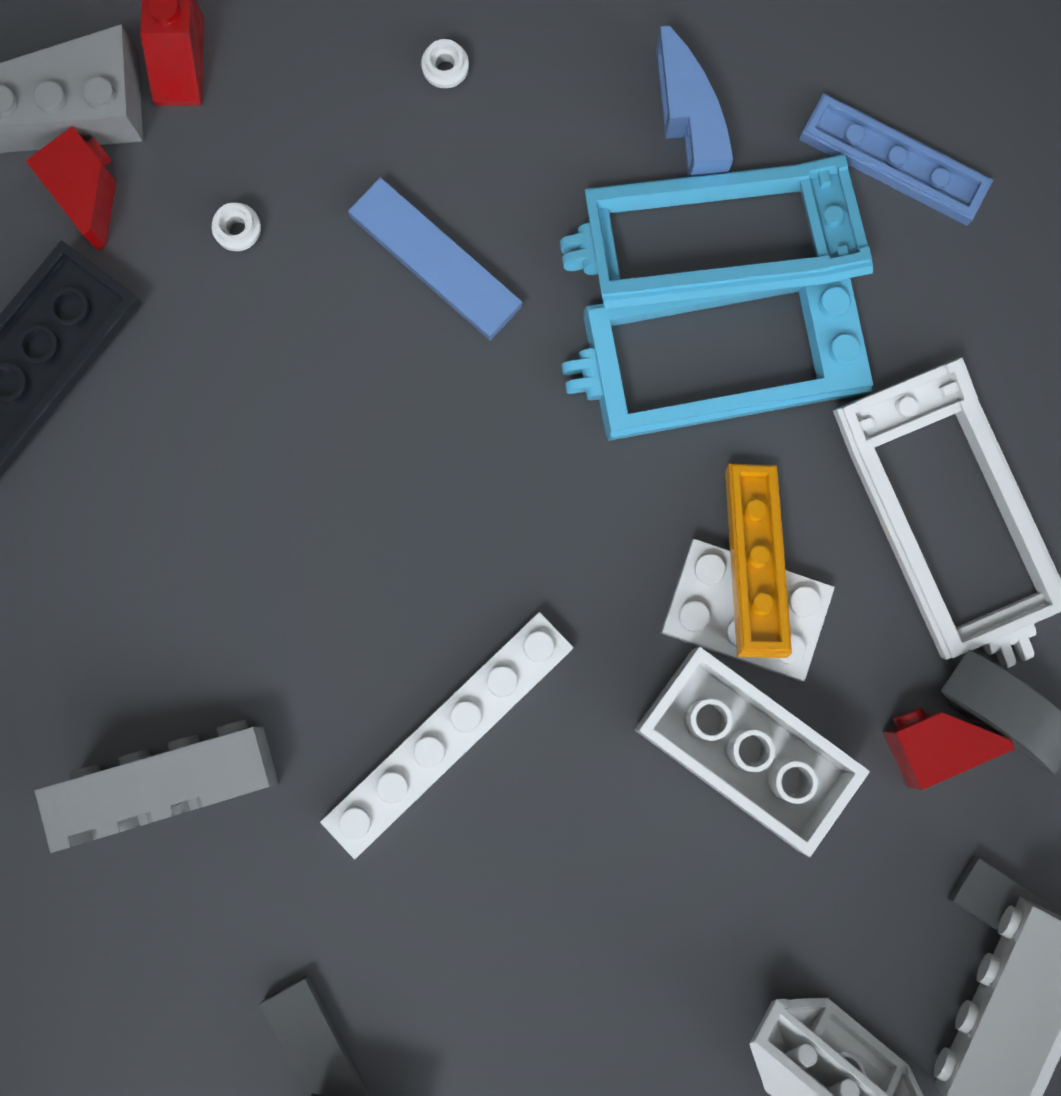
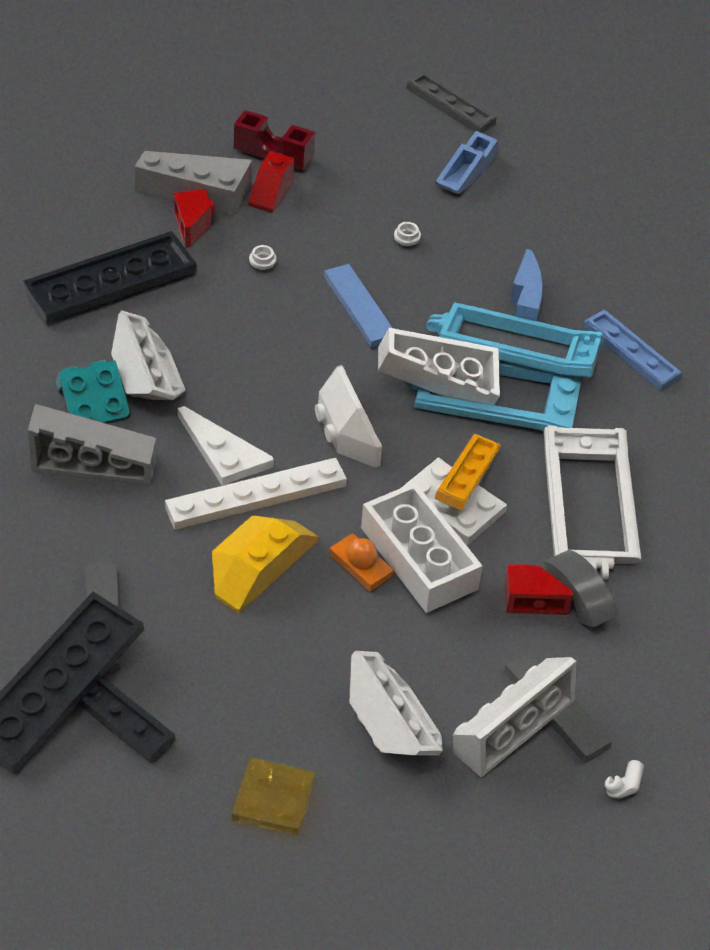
camera: 20 degrees right, 35 degrees down
(103, 657) = (94, 391): none -> teal bracket
(162, 562) = (144, 360): none -> white wedge
(365, 673) = (223, 451): none -> white wing
(508, 863) = (256, 557): none -> yellow wedge
(520, 526) = (346, 420): none -> white wedge
(652, 364) = (441, 365): none -> white wedge
(663, 798) = (362, 561): none -> orange tile

